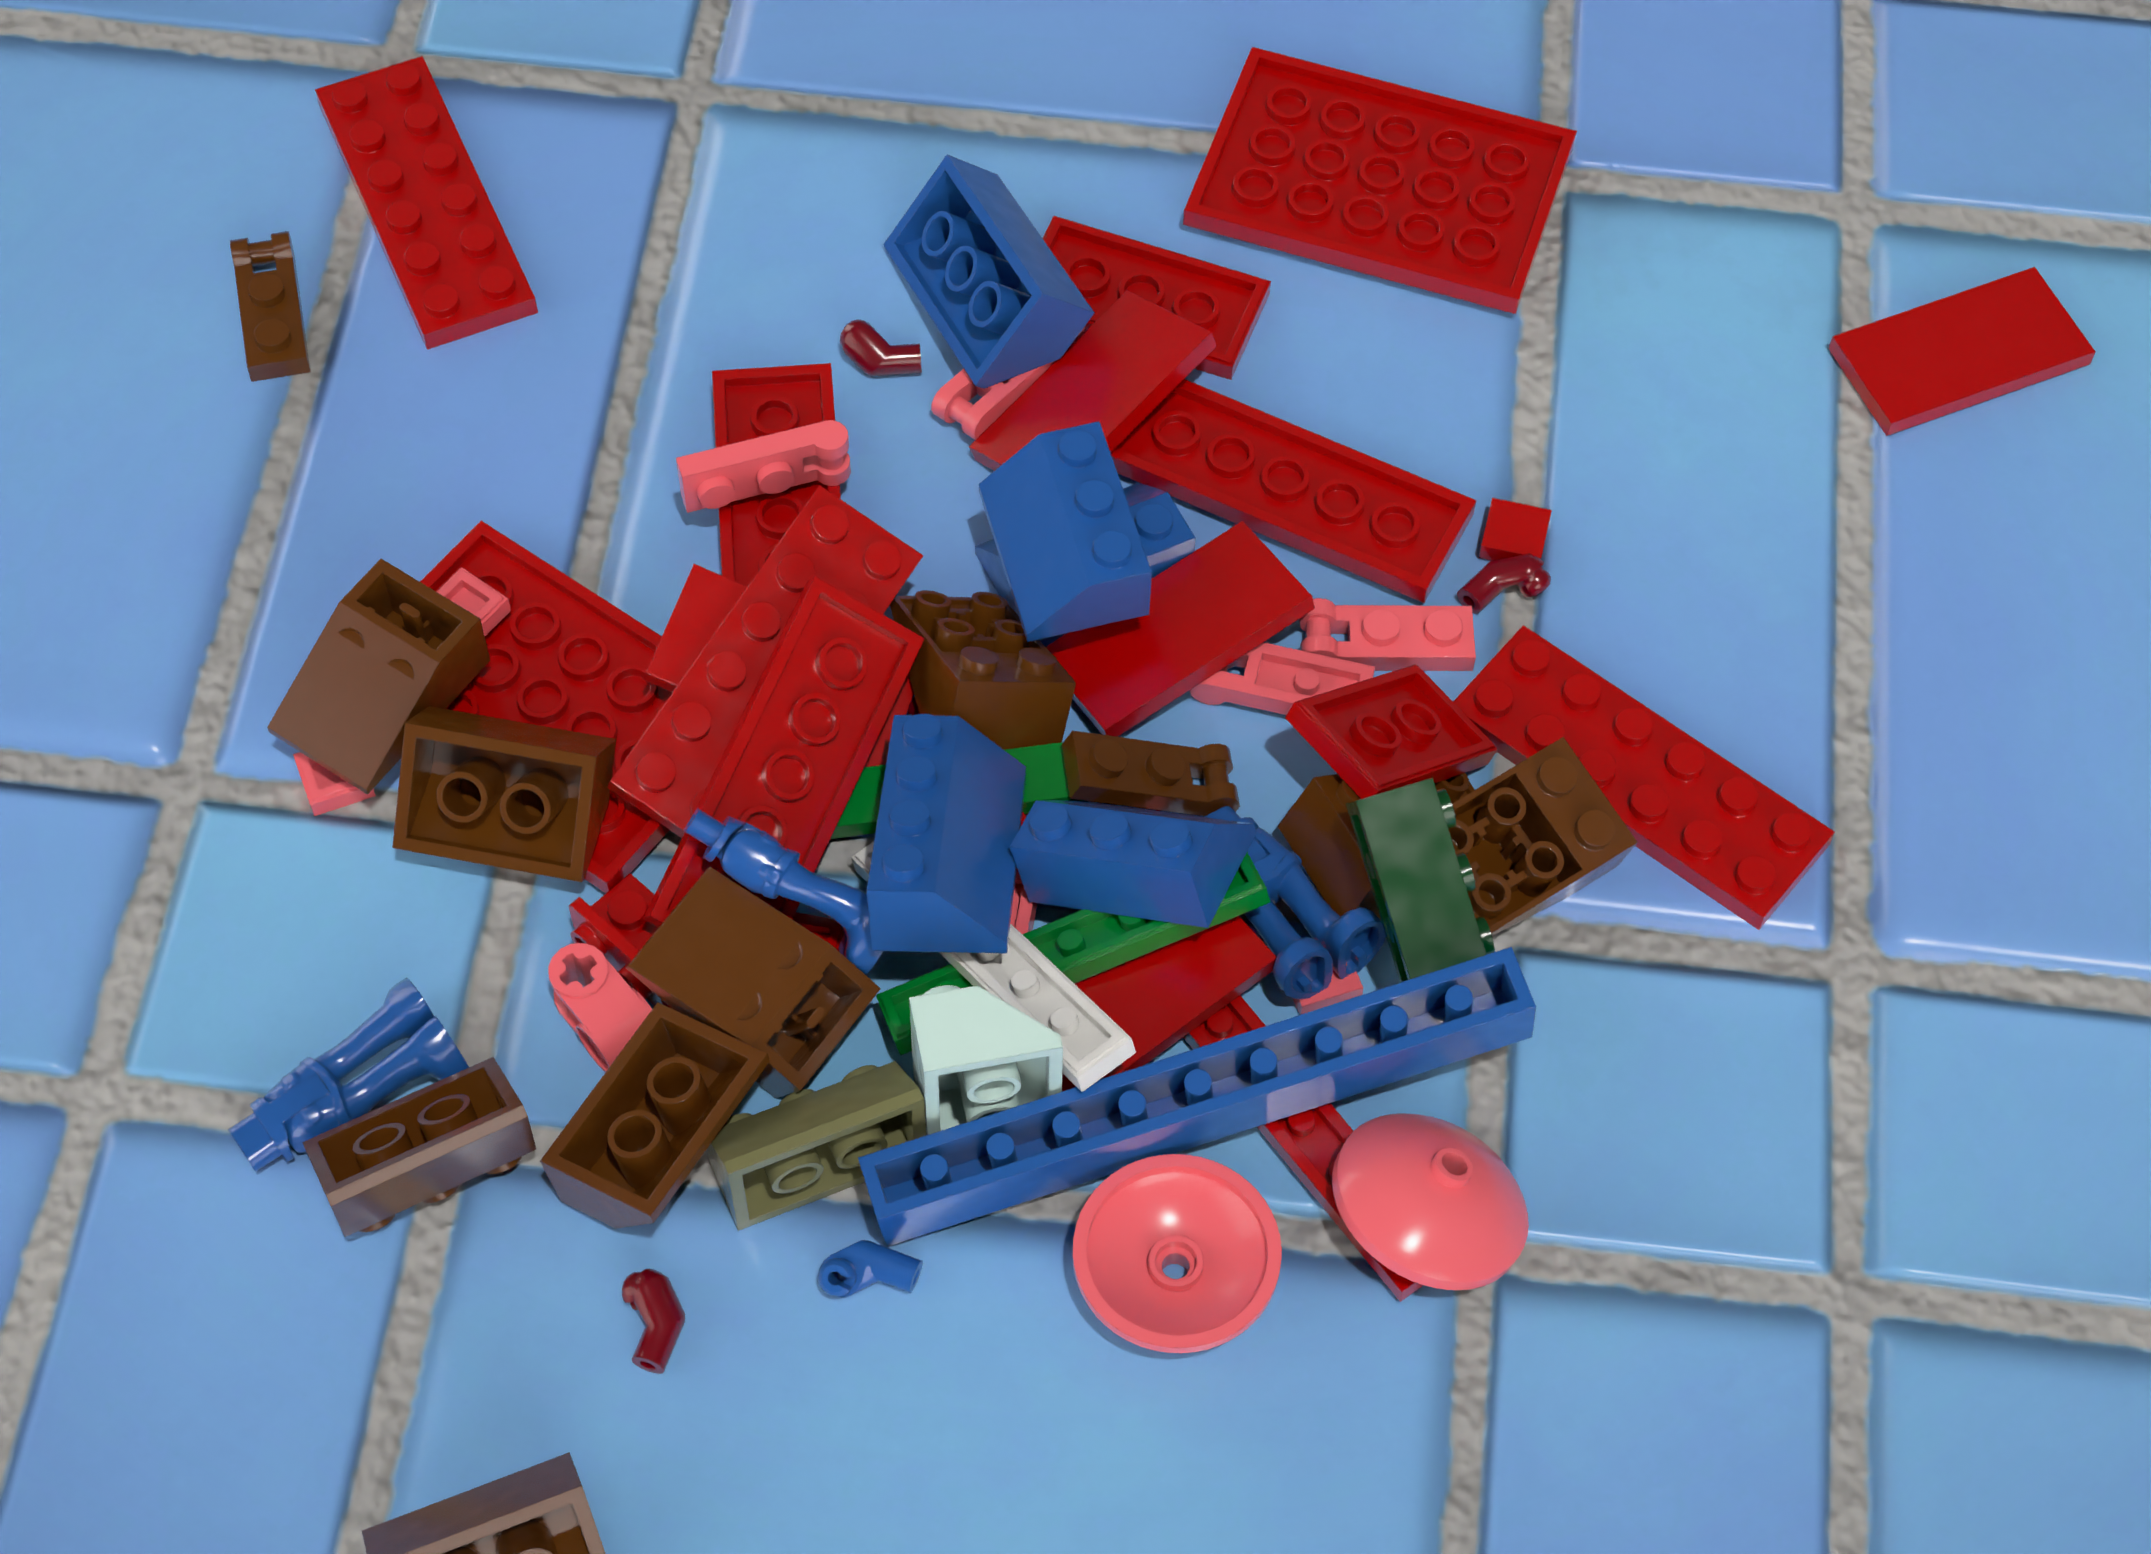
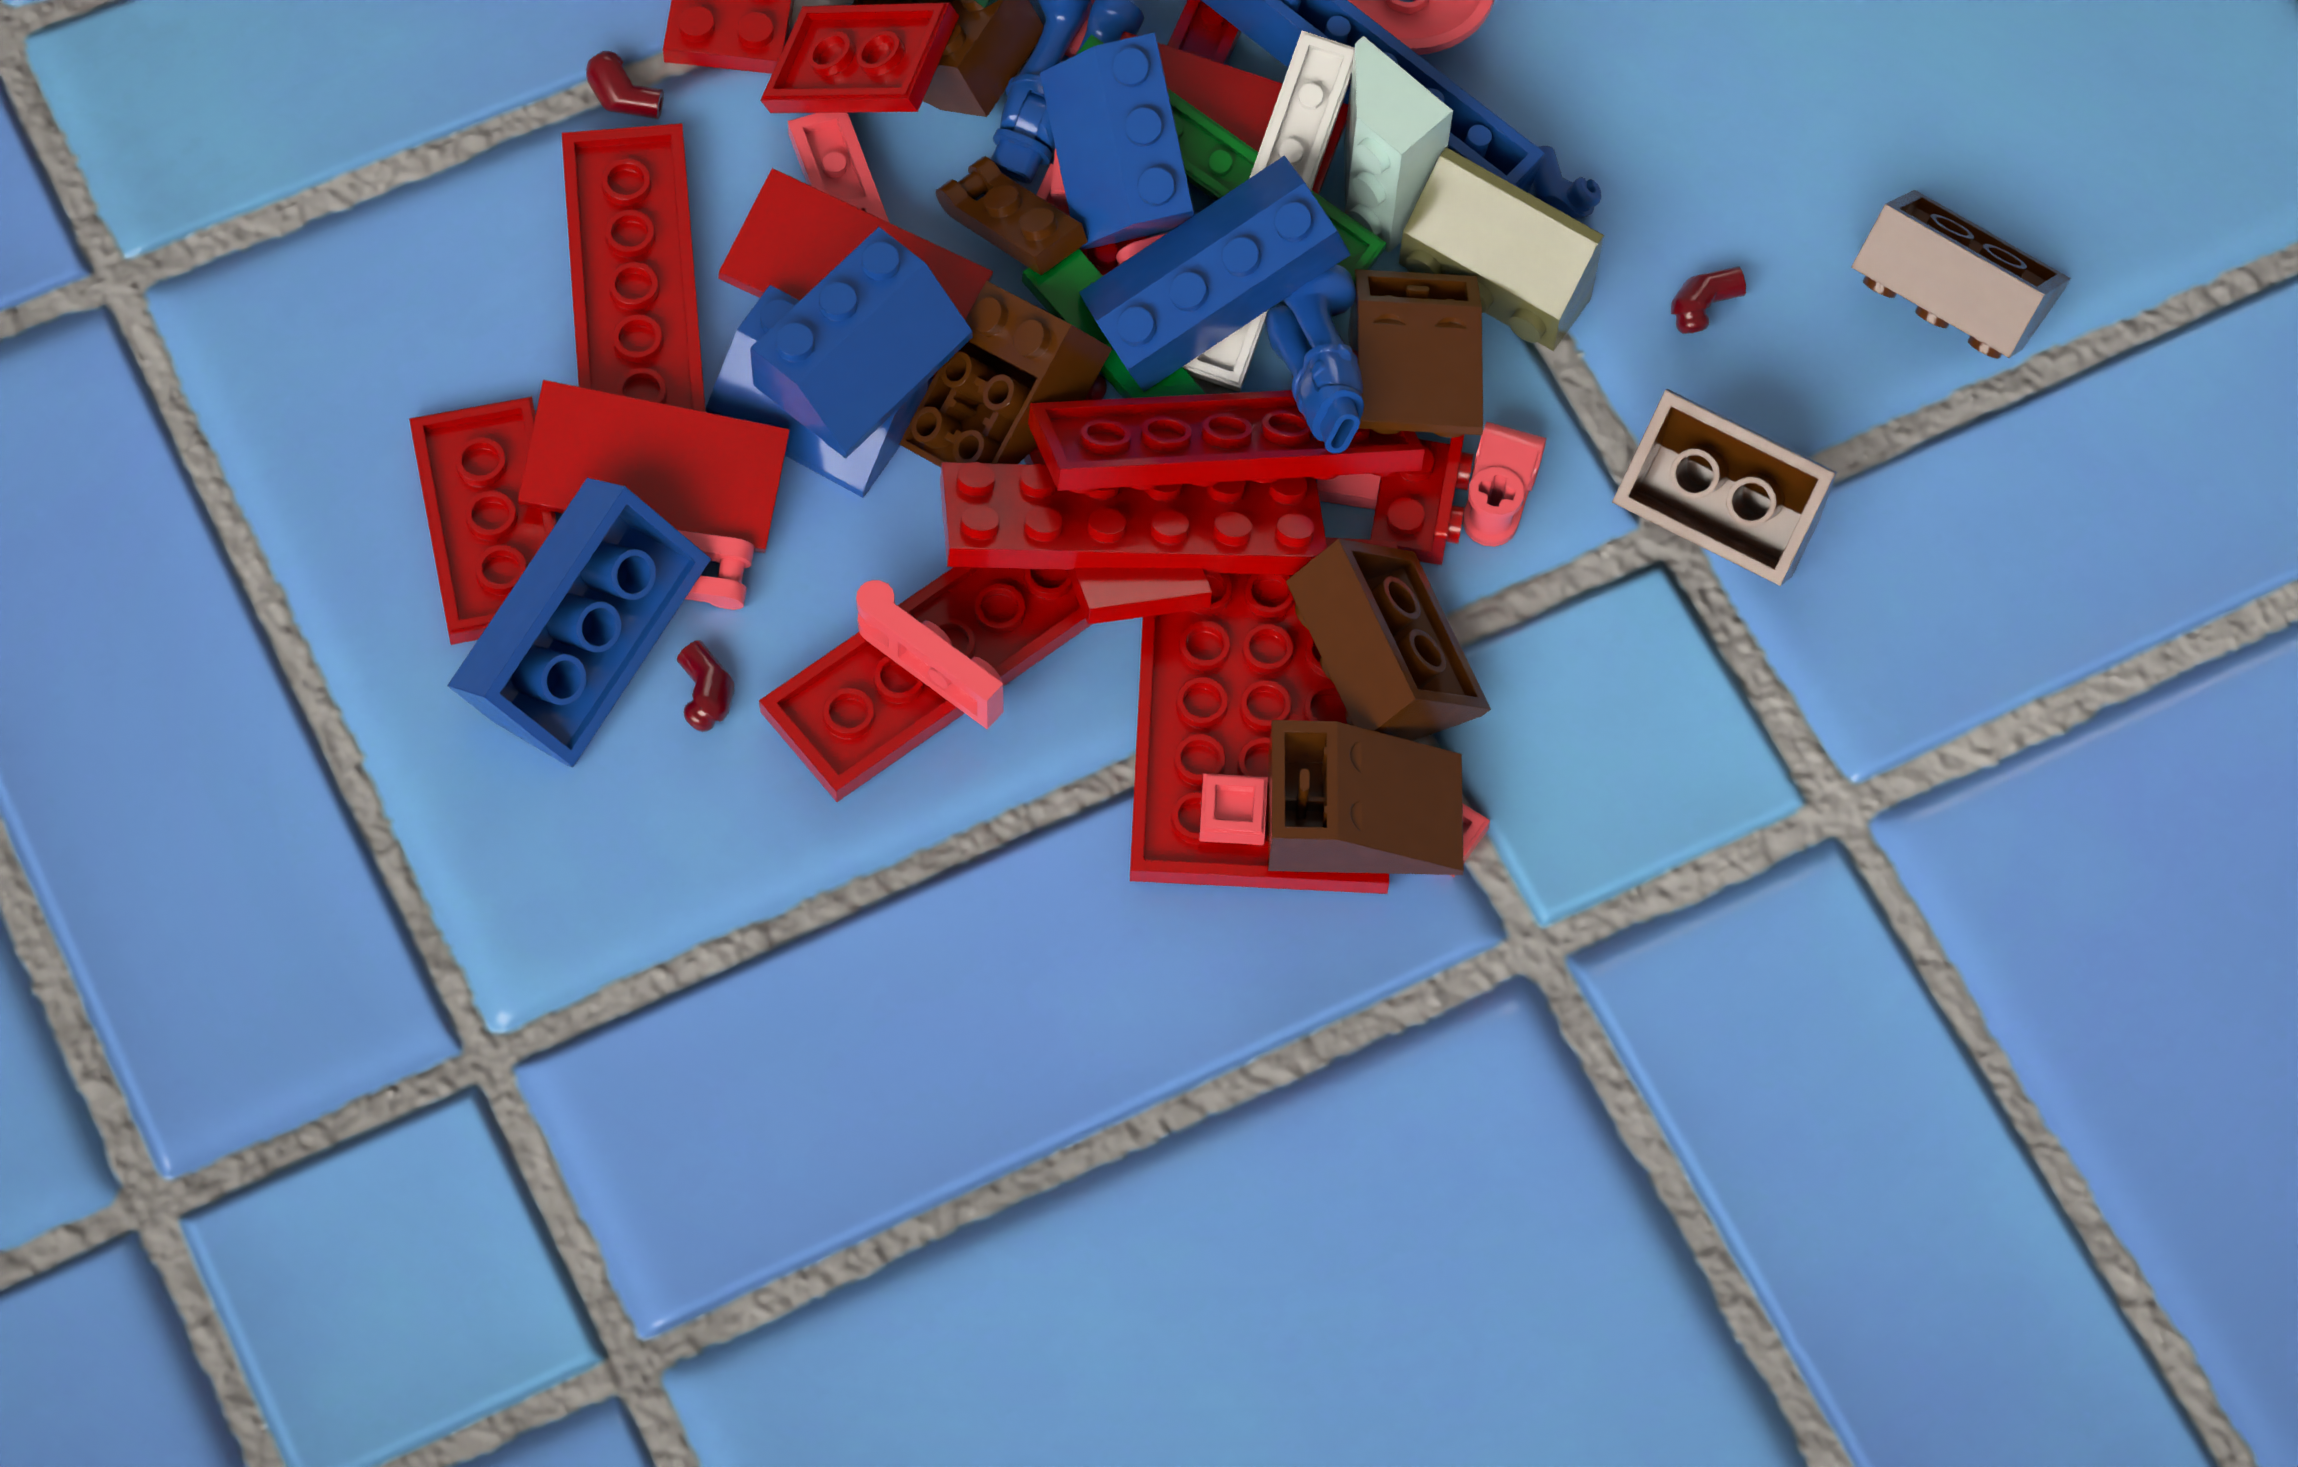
camera: 125 degrees left, 5 degrees up
(270, 308) = (1017, 1242): reddish brown plate -> none
(316, 1101) = (1735, 625): blue piece -> none
(426, 202) = (792, 1202): red plate -> none
(650, 1118) = (1575, 351): reddish brown slope -> none
(1381, 179) = (222, 396): red plate -> none
(1392, 635) = (730, 134): coral plate -> none
(1514, 530) = (564, 105): red tile -> none

